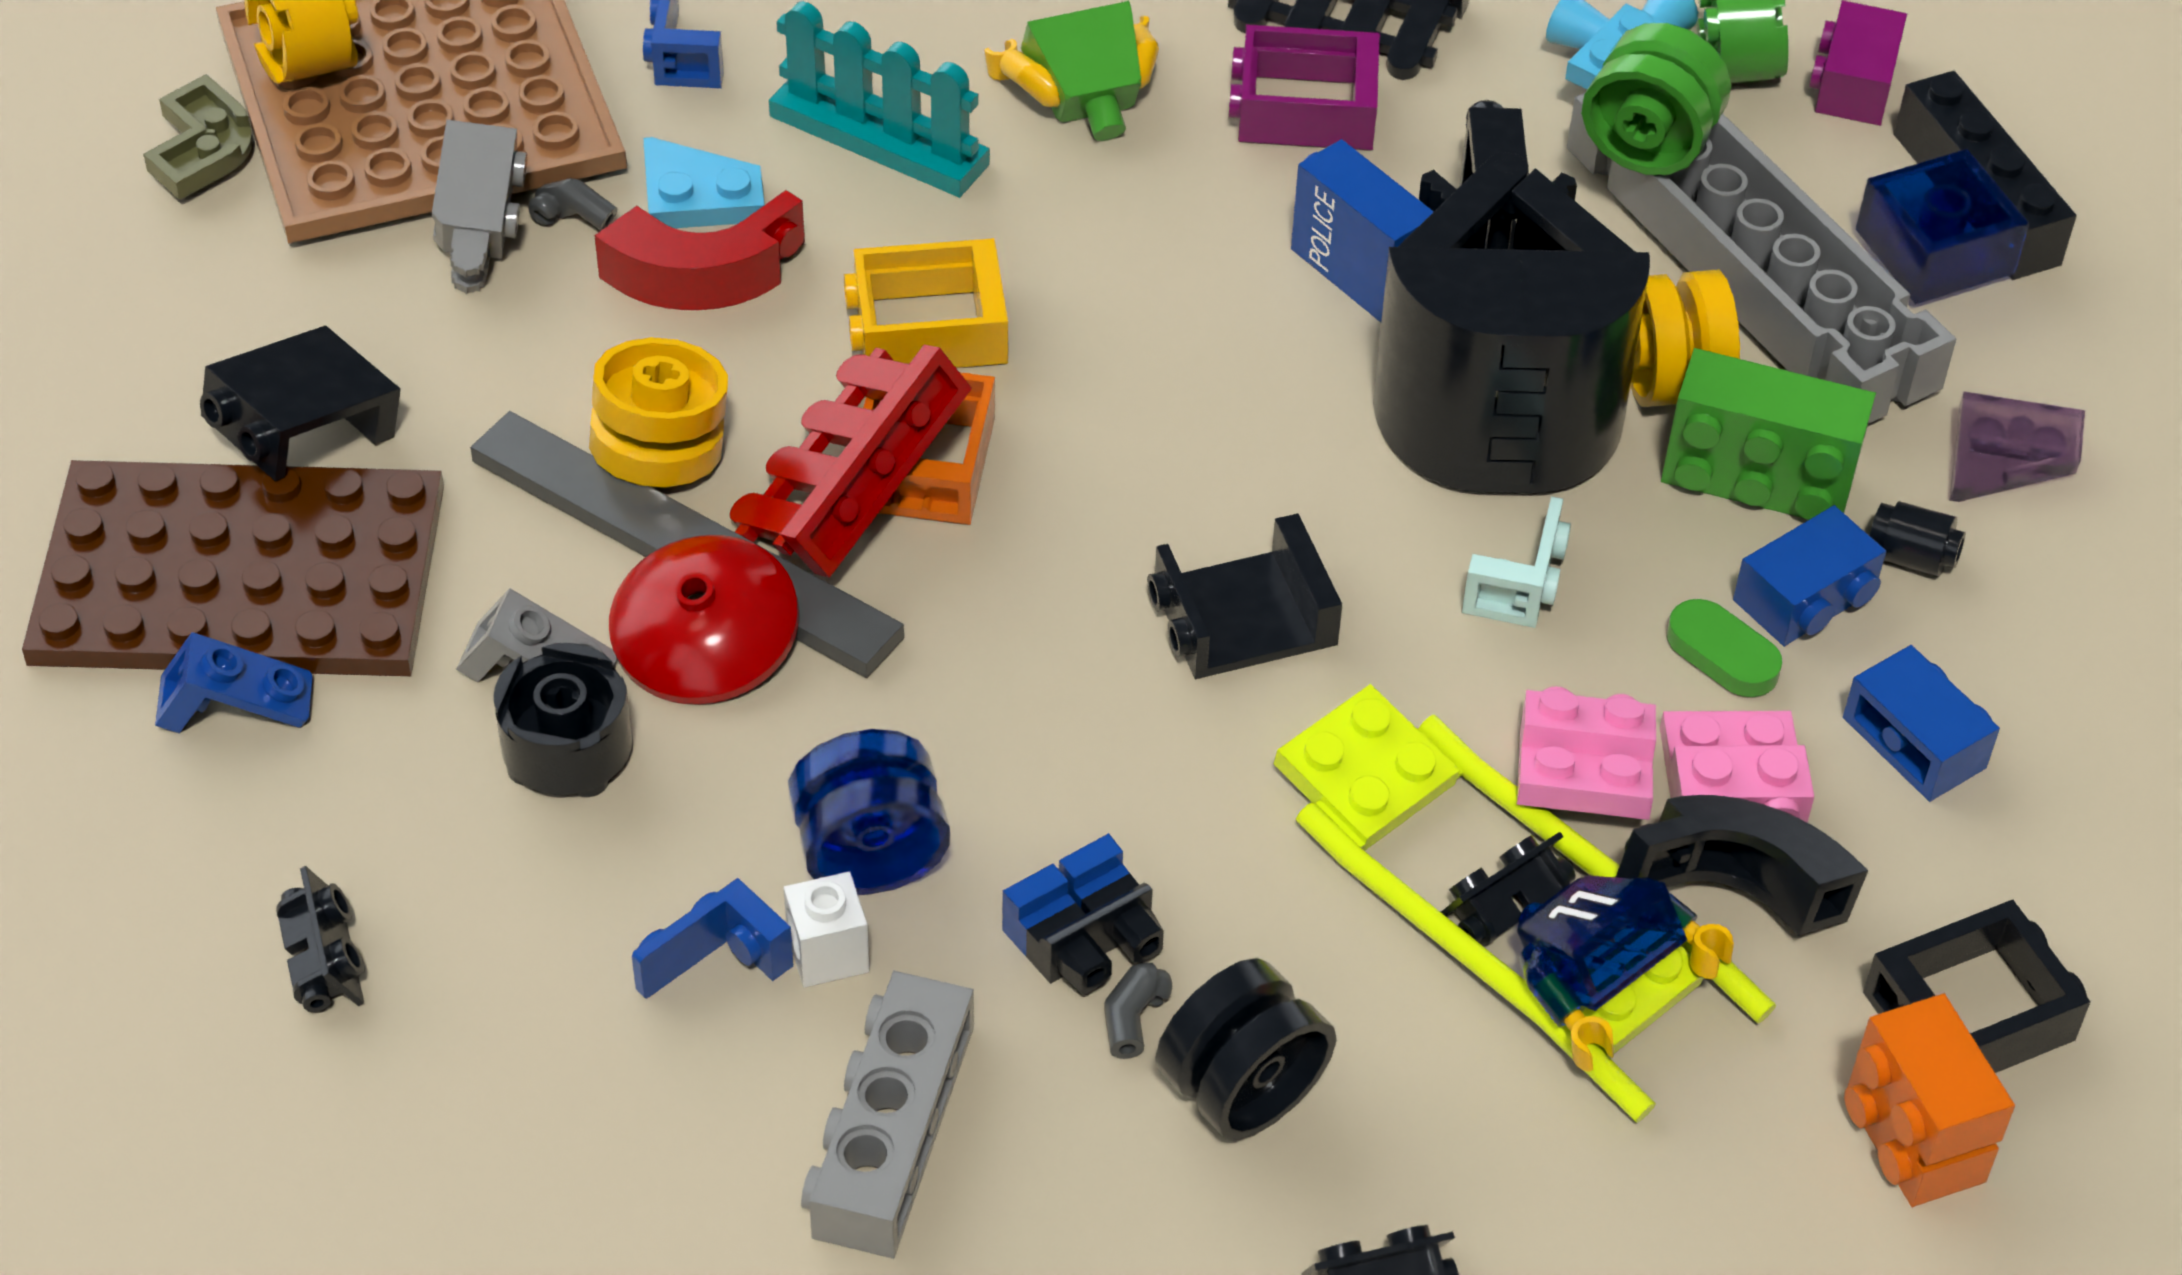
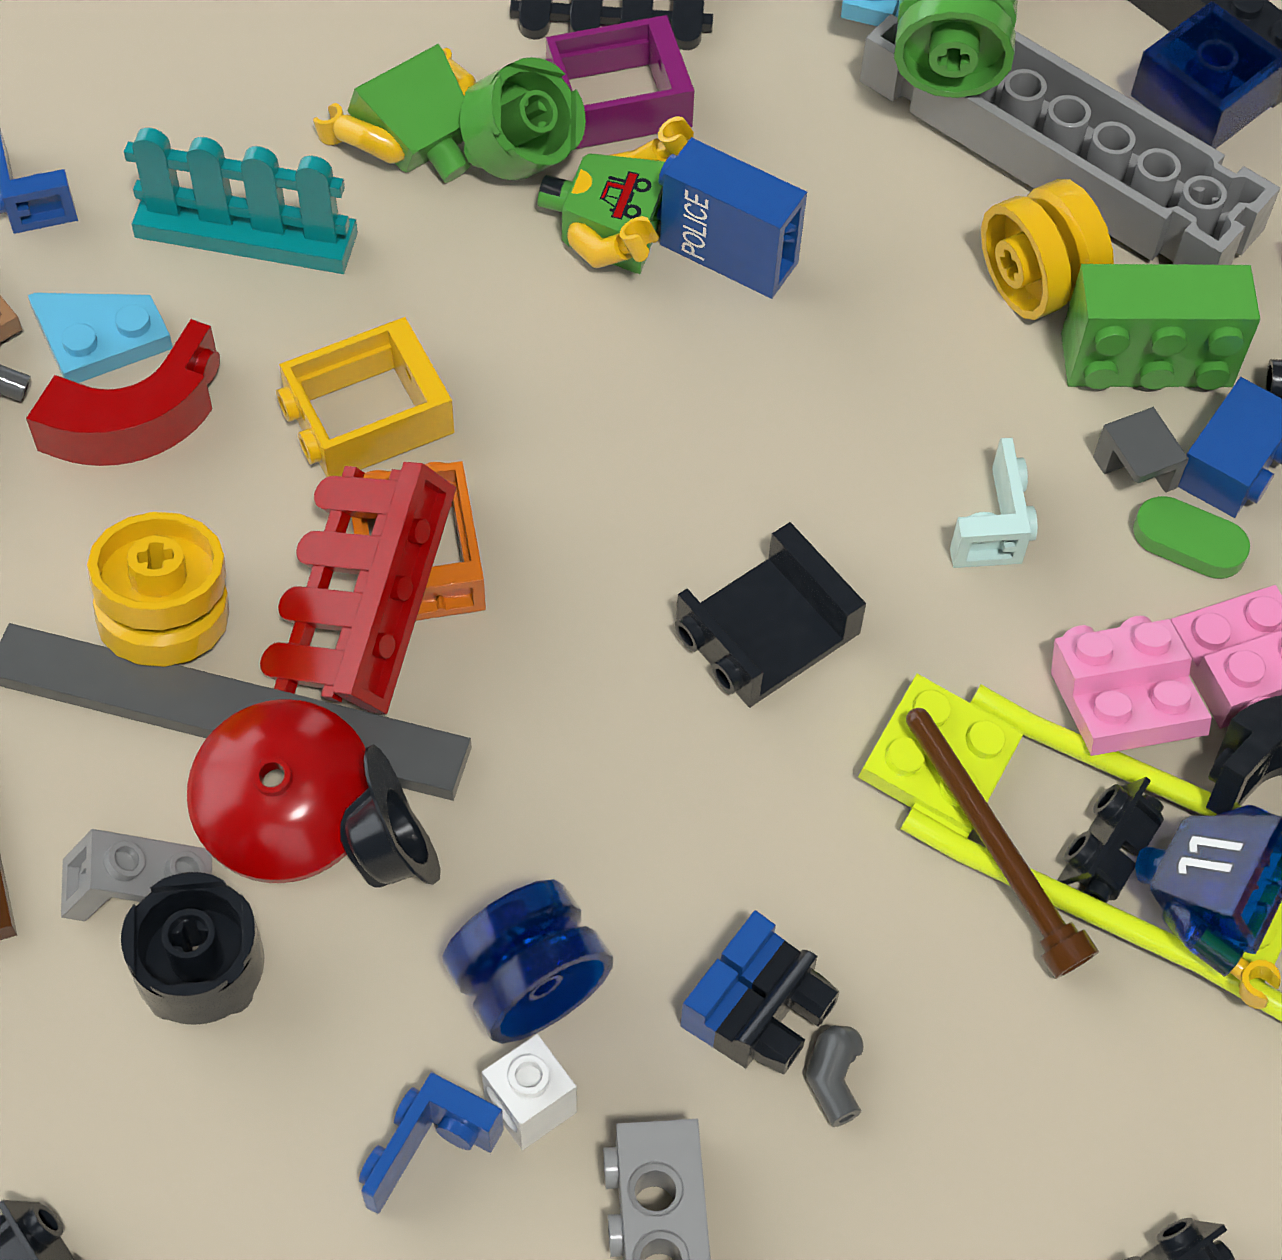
camera: 20 degrees left, 10 degrees up
(783, 669) = (383, 832): none -> black piece
(1185, 91) = (521, 119): none -> bright green brick
(1245, 1048) = (962, 1094): black wheel -> none
(1249, 194) = (615, 200): none -> torso
(1413, 965) = (1062, 942): none -> reddish brown piece
(1517, 269) = (914, 321): black piece -> none
(1701, 545) = (1142, 447): none -> dark grey panel

